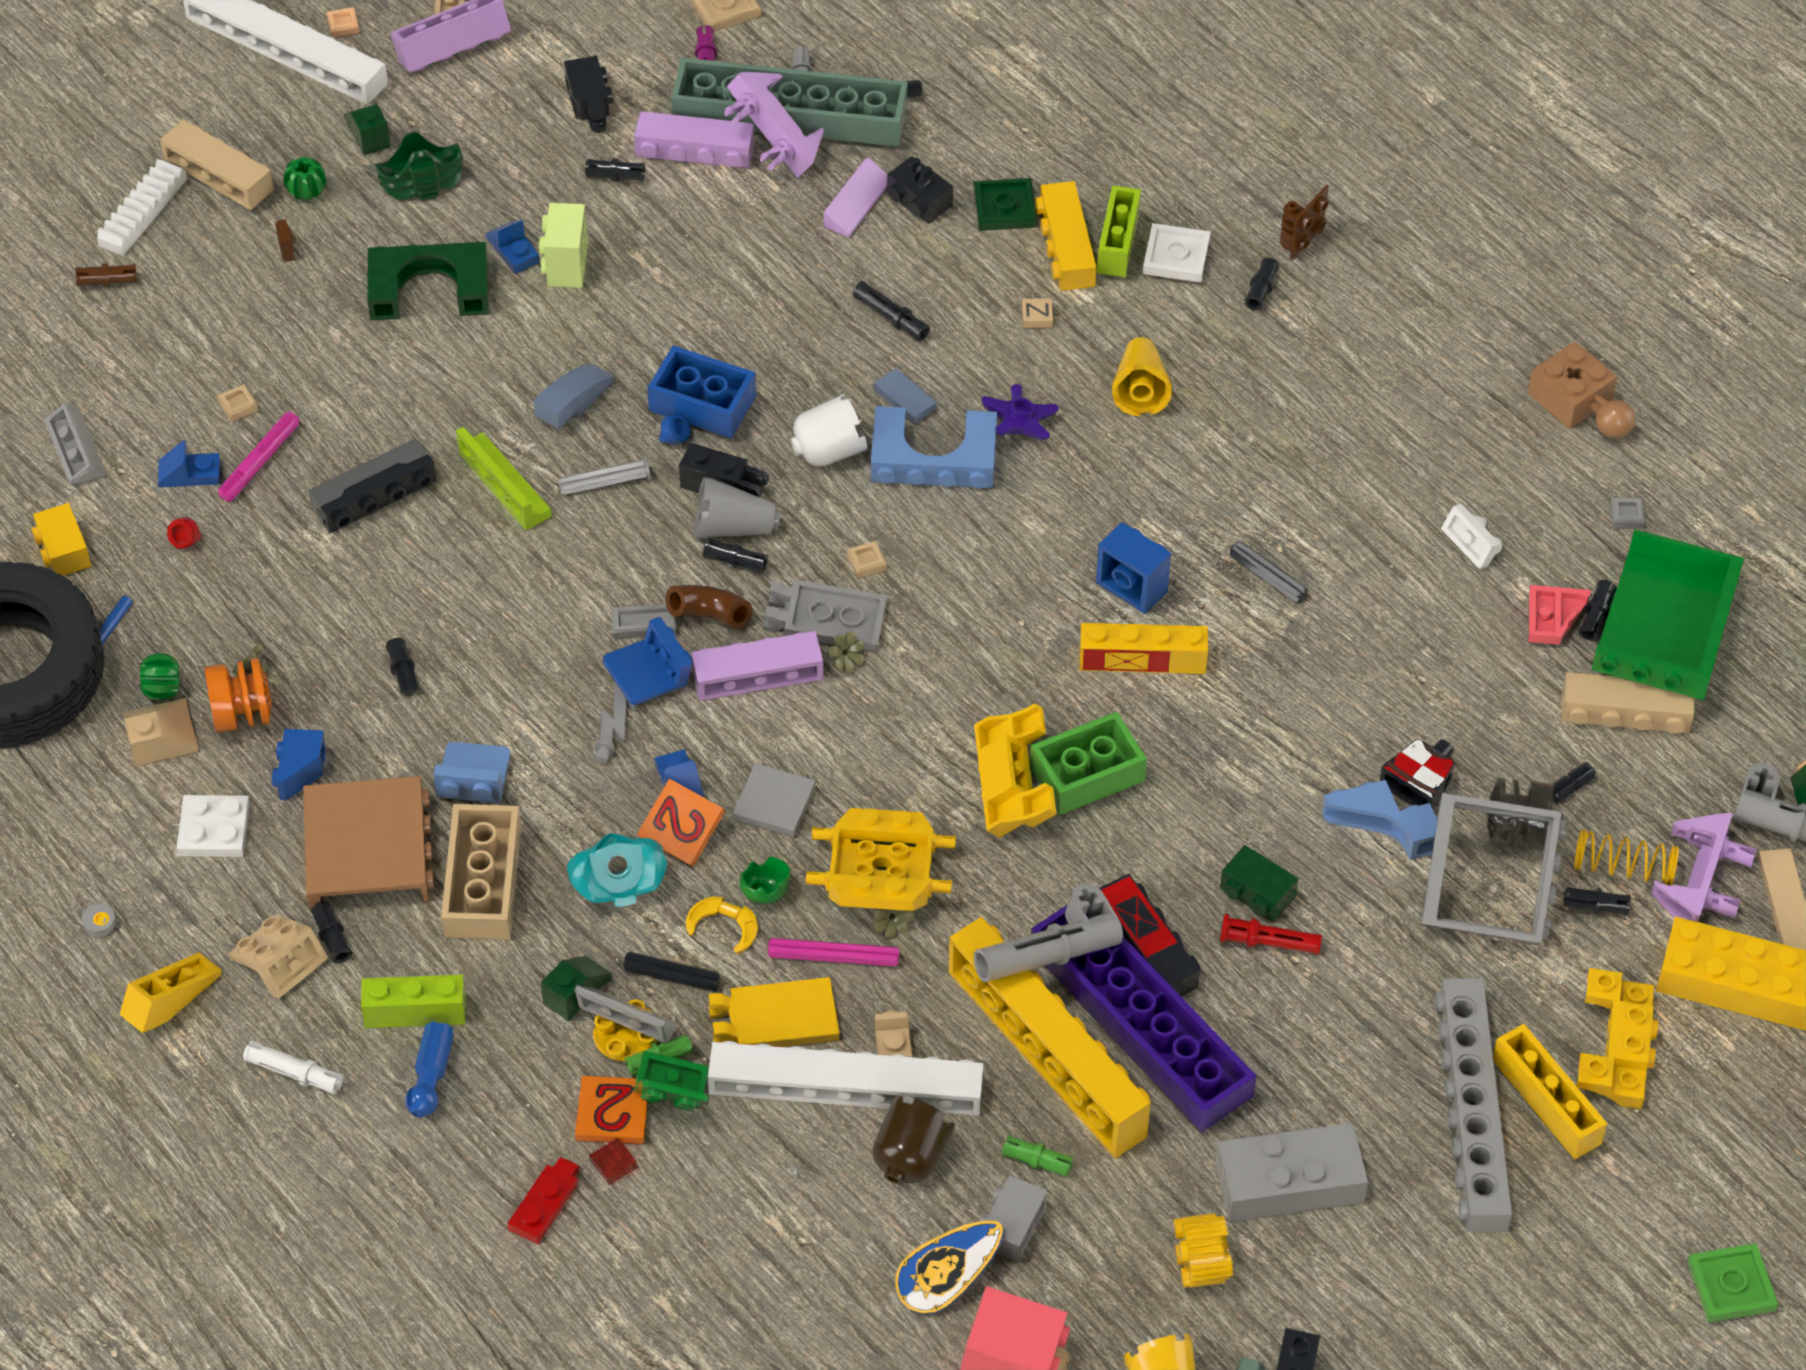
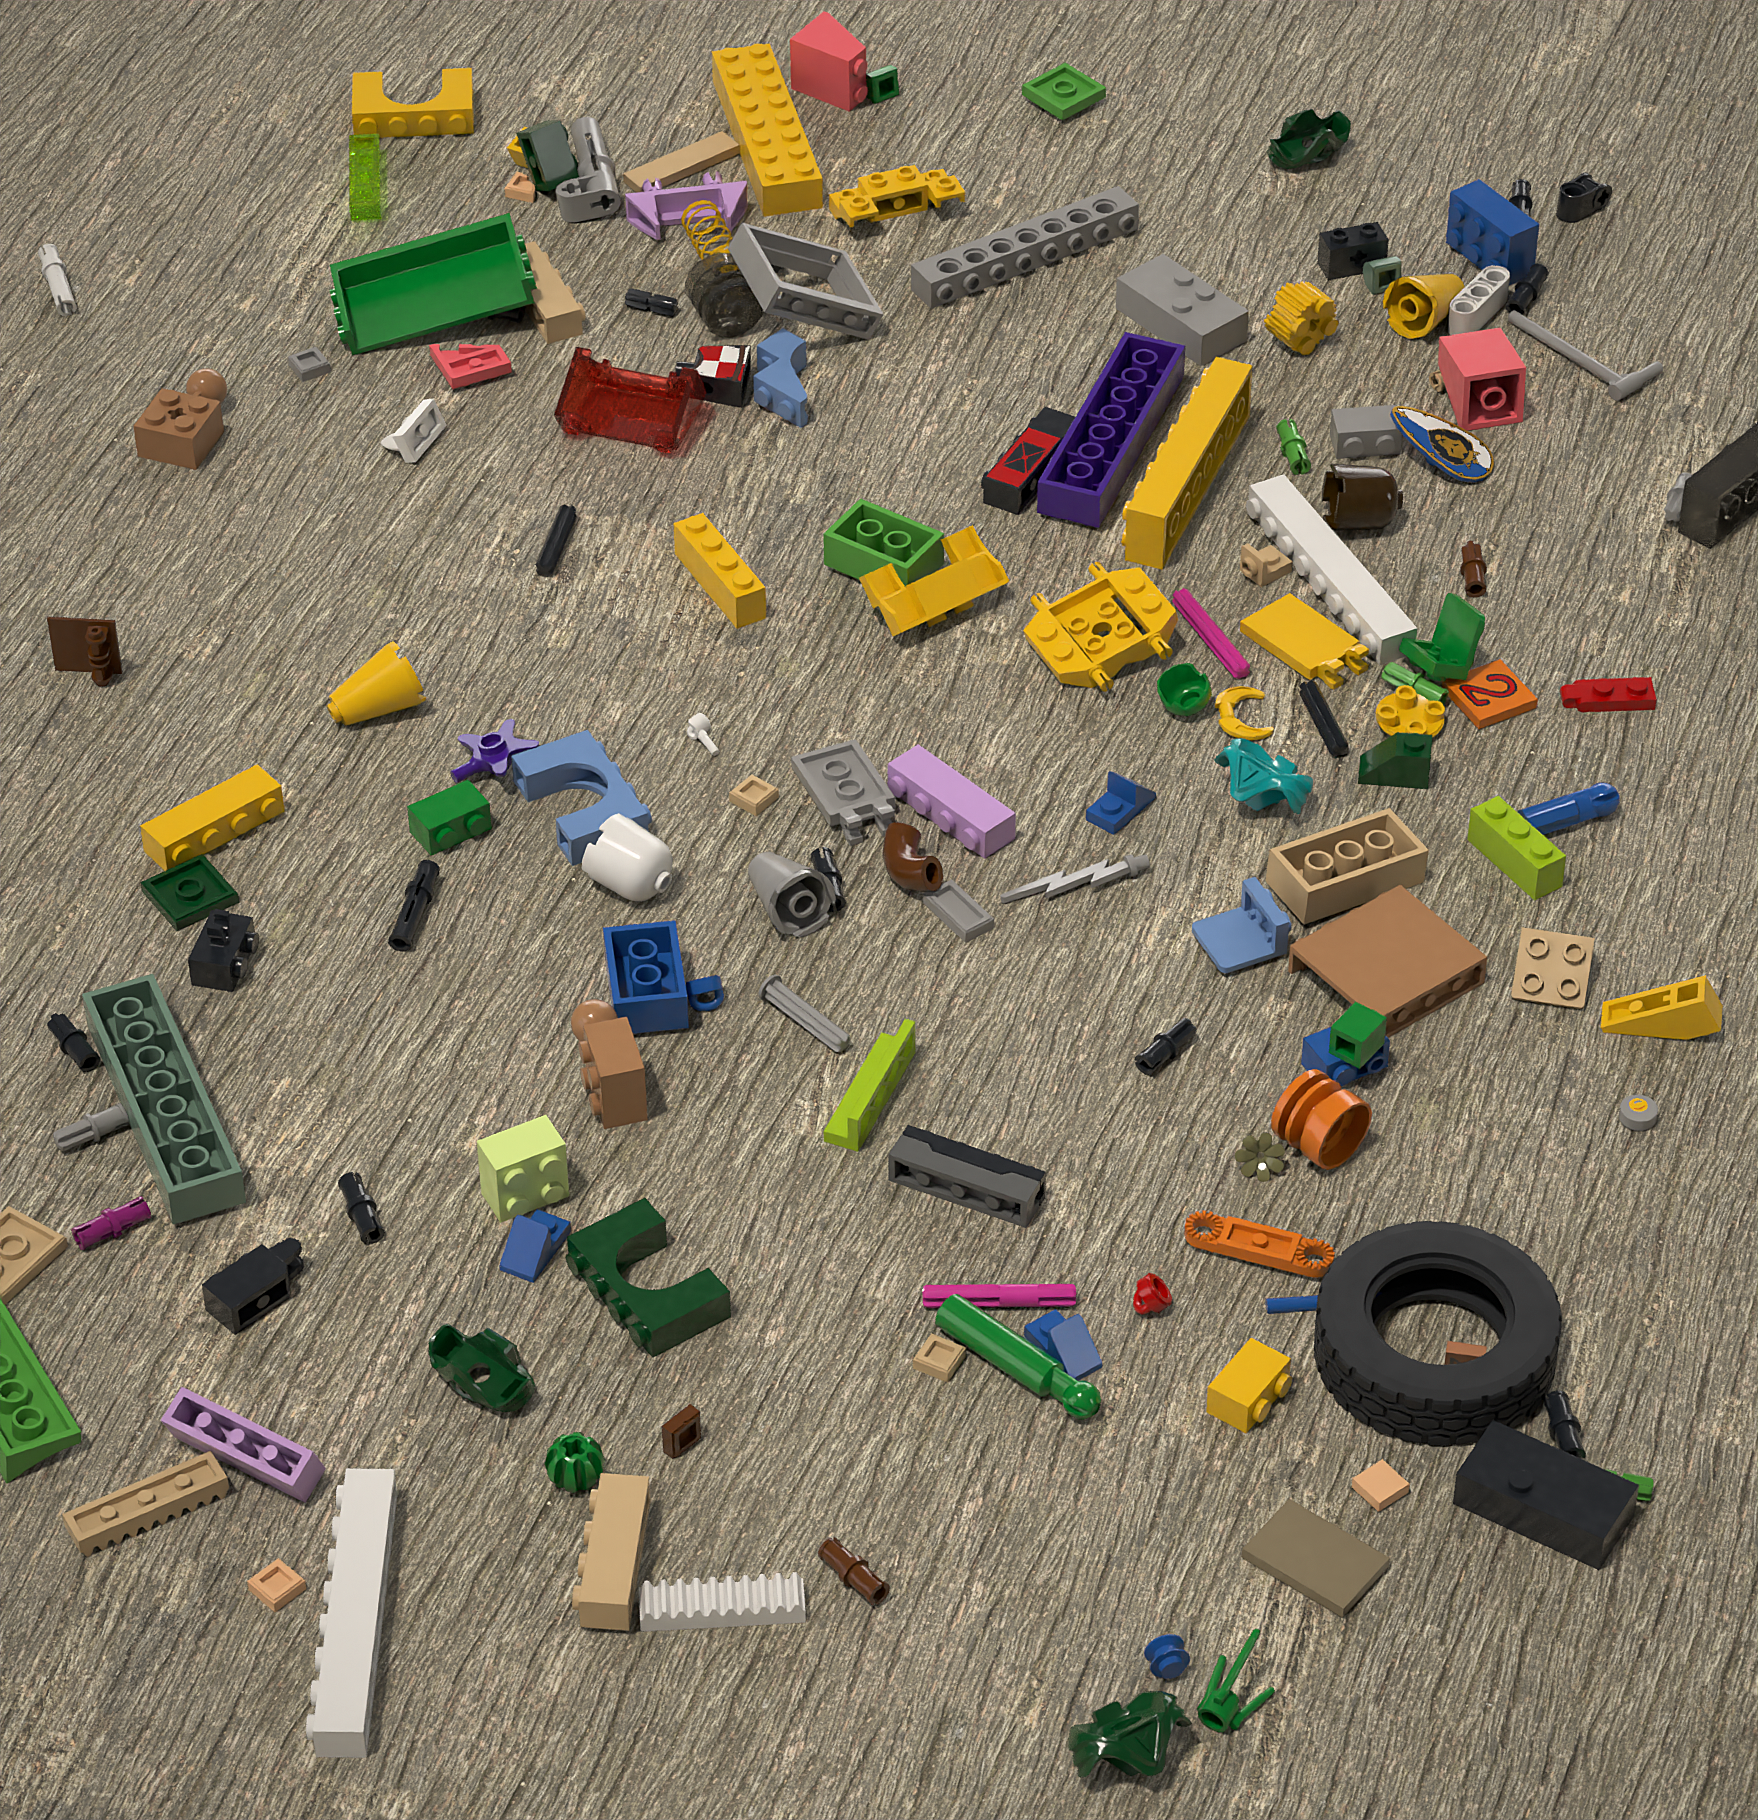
camera: 120 degrees left, 10 degrees down
(74, 445) = (1111, 1464): light grey slope -> none
(159, 677) = (1345, 1205): green piece -> none
(160, 732) = (1402, 1183): tan slope -> none
(175, 617) = (1258, 1244): none -> orange plate
(196, 431) = (1016, 1356): none -> green piece
(213, 825) = (1463, 1090): white plate -> none
(284, 747) = (1357, 1035): none -> green brick
(305, 1072) = (1648, 887): white pin -> none
(331, 932) = (1498, 944): black axle -> none
(368, 128) = (443, 1456): dark green slope -> none
(571, 394) = (717, 1083): sand blue slope -> none
(613, 1161) = (1536, 671): clear red tile -> none
(621, 332) = (612, 1064): none -> medium nougat brick
(625, 1013) = (1401, 696): light grey slope -> none
(650, 665) = (1011, 870): blue bracket -> none
(681, 822) = (1172, 769): orange tile -> none
(694, 139) = (270, 1159): lavender brick -> none
(721, 466) = (742, 926): black hinge -> none
(773, 121) = (225, 1070): lavender hose -> none
(773, 1193) = (1473, 569): none -> reddish brown axle
(774, 800) = (1086, 736): light grey tile -> none
(846, 652) = (883, 753): olive plant -> none
(856, 198) = (264, 1004): lavender slope -> none
(902, 392) = (521, 853): sand blue tile -> none
(966, 555) = (698, 727): none -> white hand
(967, 364) = (449, 817): none -> green brick
(1037, 313) = (334, 807): tan tile -> none
(1057, 942) = (1077, 444): light grey piece -> none
(1118, 231) = (183, 773): lime brick -> none
(1133, 567) = (636, 597): blue brick -> none
(1176, 252) = (179, 738): white plate -> none
(1254, 933) = (968, 408): red pin -> none
(1258, 883) = (917, 421): dark green brick -> none
(1261, 284) = (181, 667): black pin -> none
(1420, 694) = (628, 403): none -> clear red windscreen
(1549, 1091) = (985, 203): yellow brick -> none
(1597, 610) = (422, 340): black pin -> none

